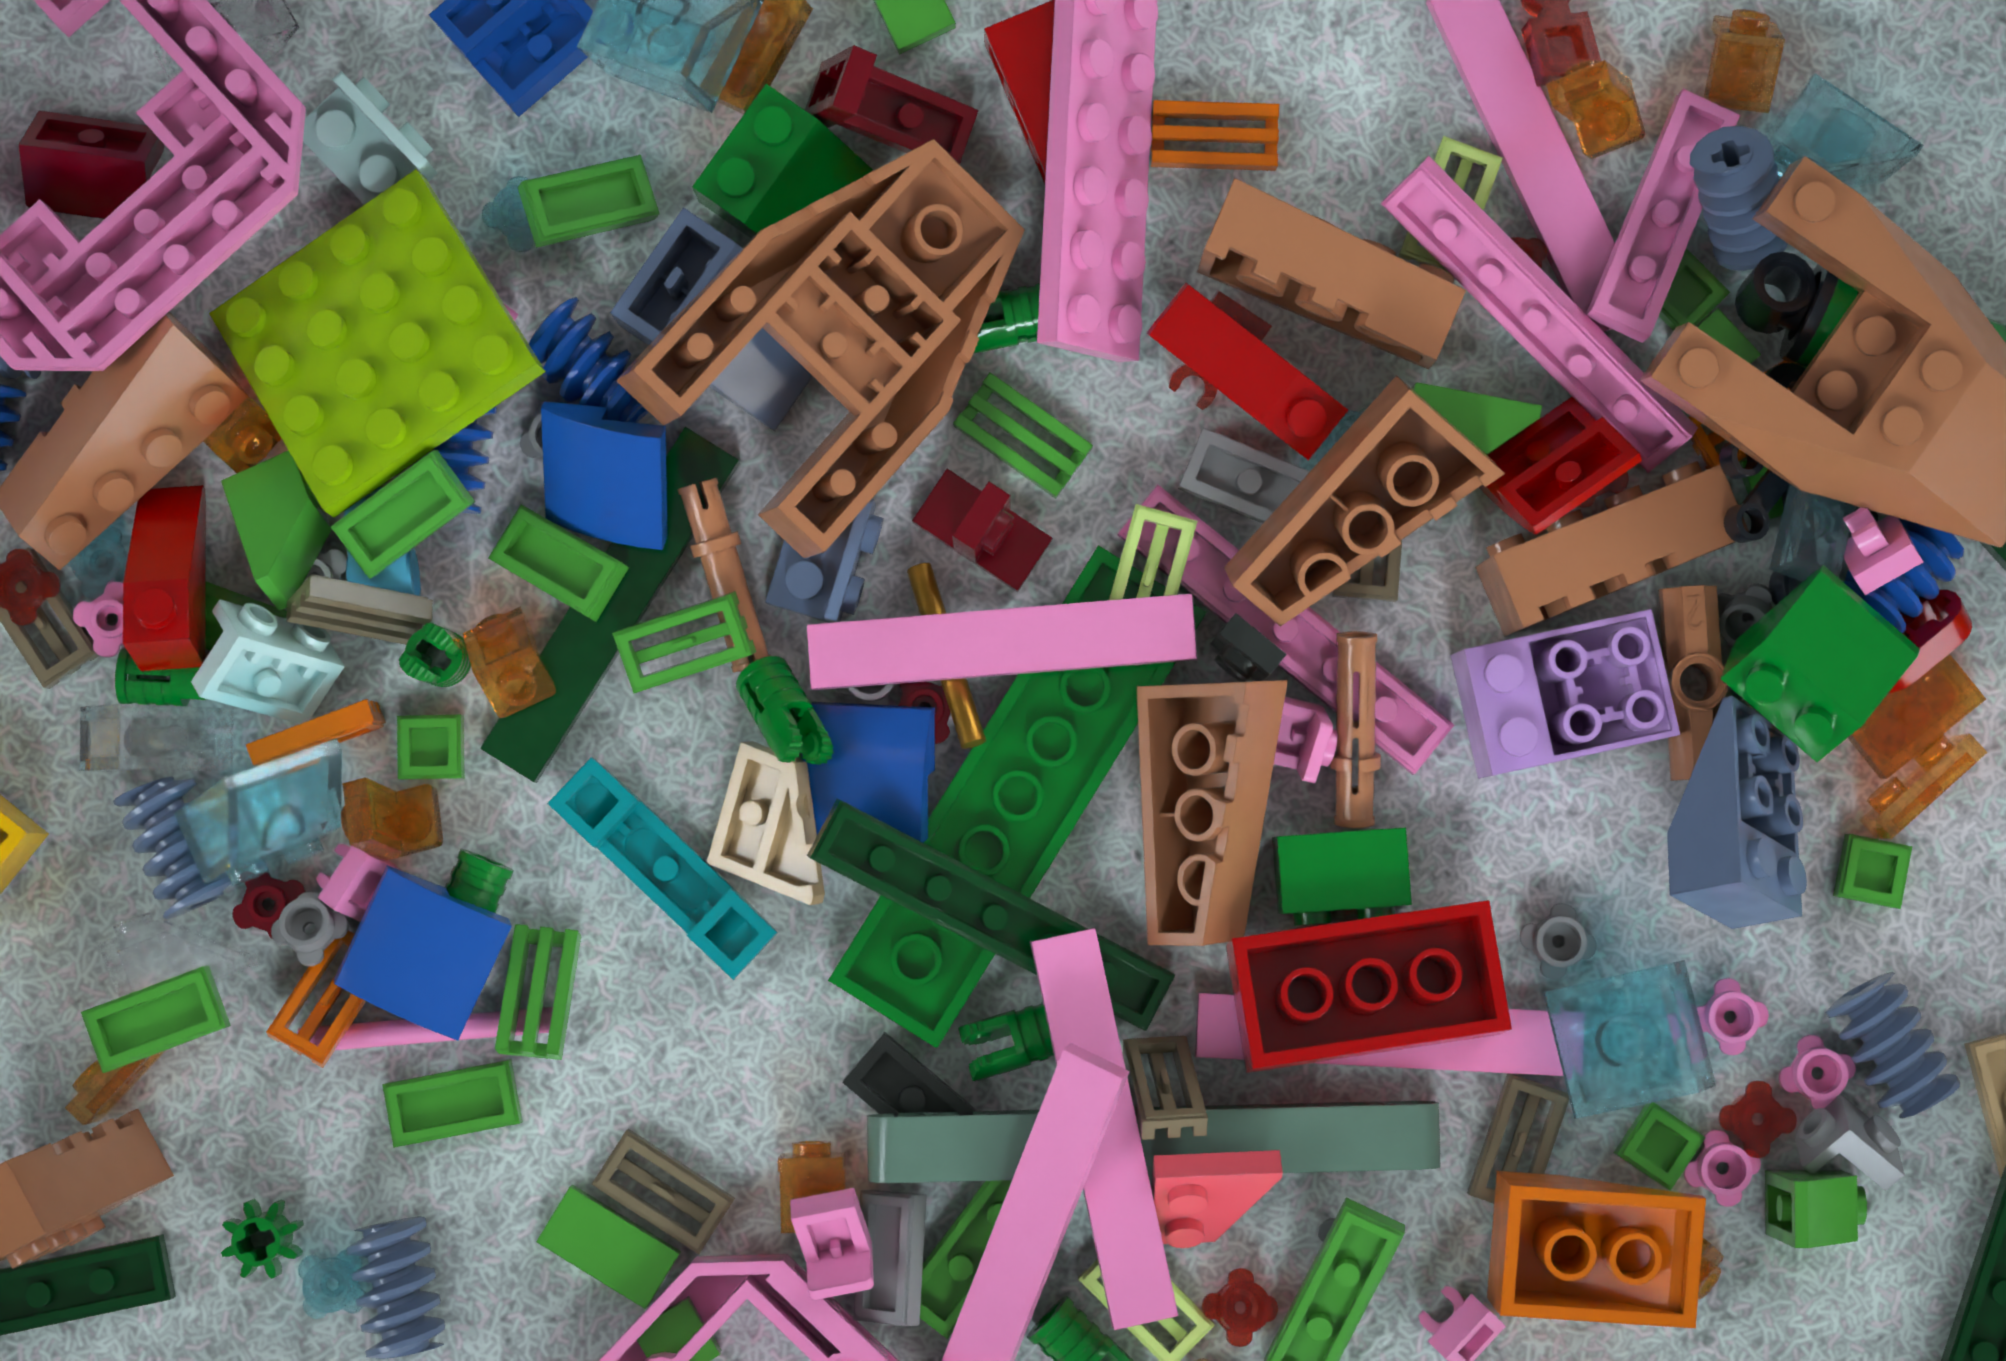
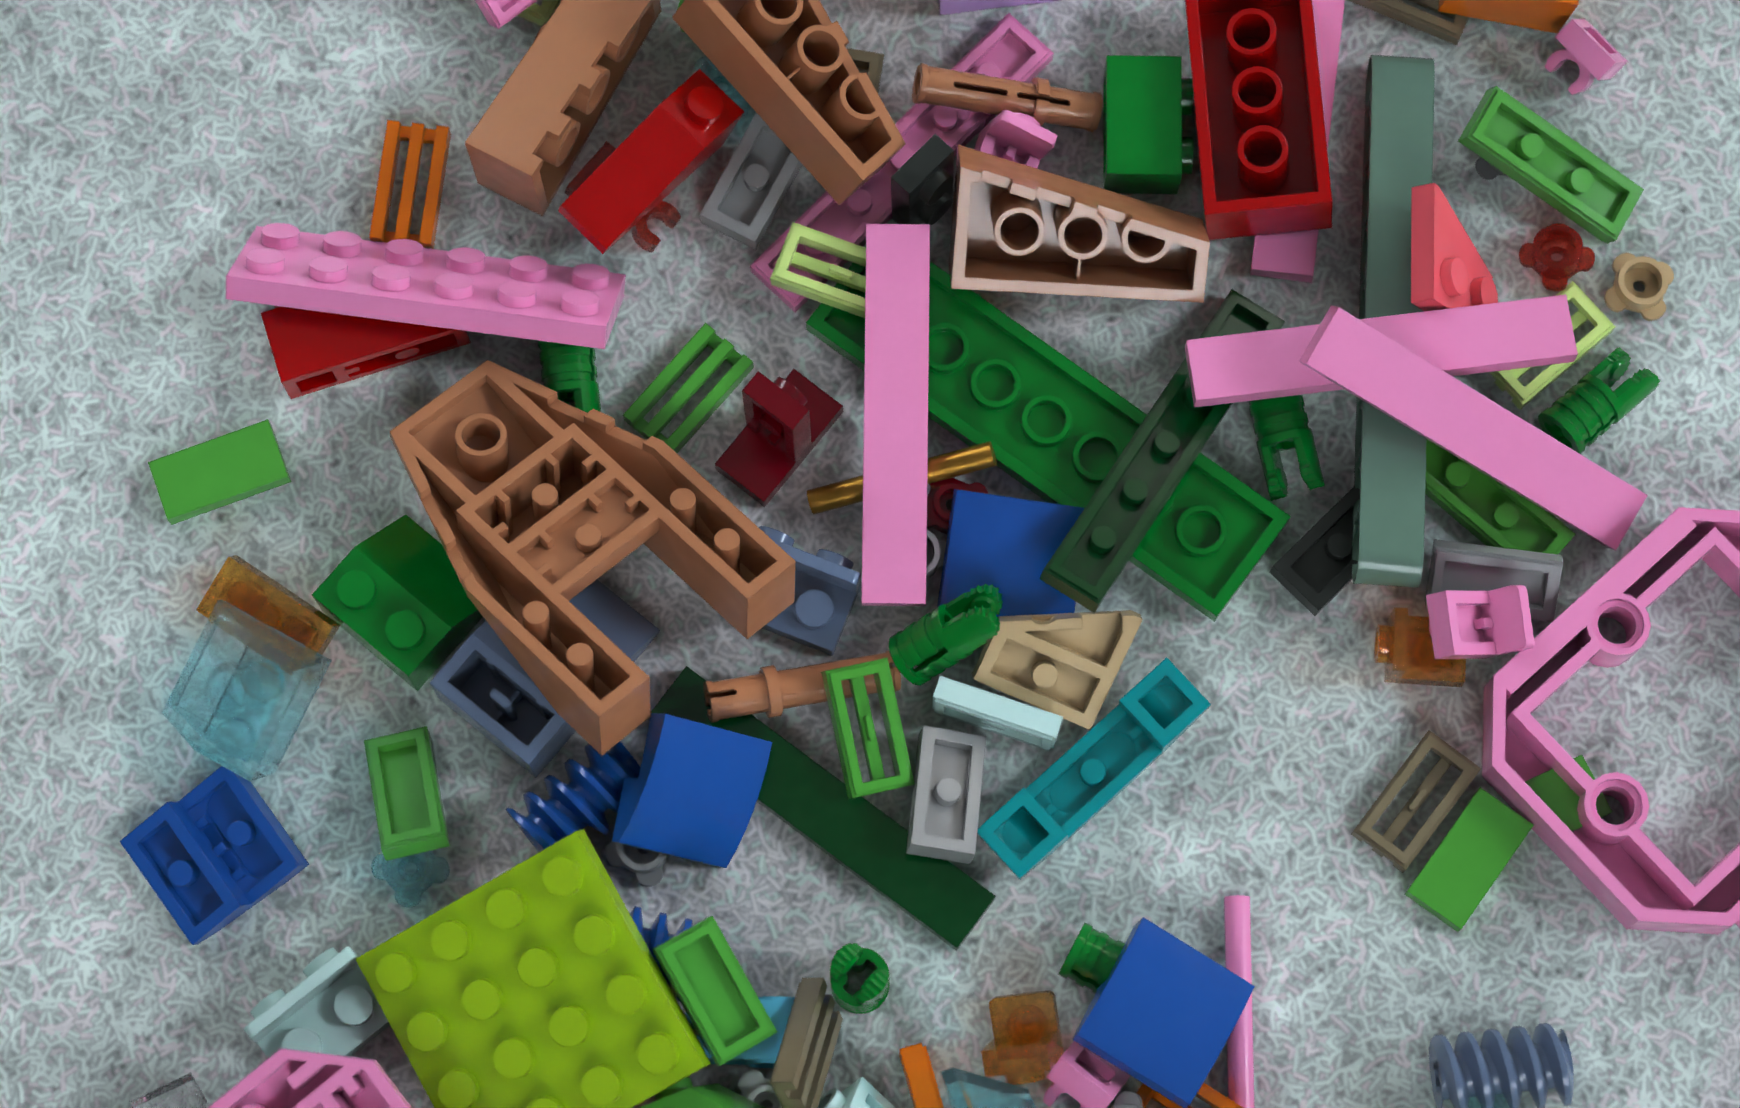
camera: 85 degrees left, 10 degrees down
(430, 747) = (950, 1001): bright green tile -> none
(452, 1103) = (1315, 1007): bright green tile -> none
(508, 662) = (872, 907): clear orange bracket -> none
(545, 940) = (1155, 897): bright green tile -> none
(558, 562) = (774, 853): bright green tile -> none
(627, 725) = (946, 794): none -> light grey plate
(712, 768) = (996, 713): none -> light aqua tile
(886, 106) = (338, 502): dark red bracket -> none
(1169, 1116) = (1361, 301): dark tan tile -> none

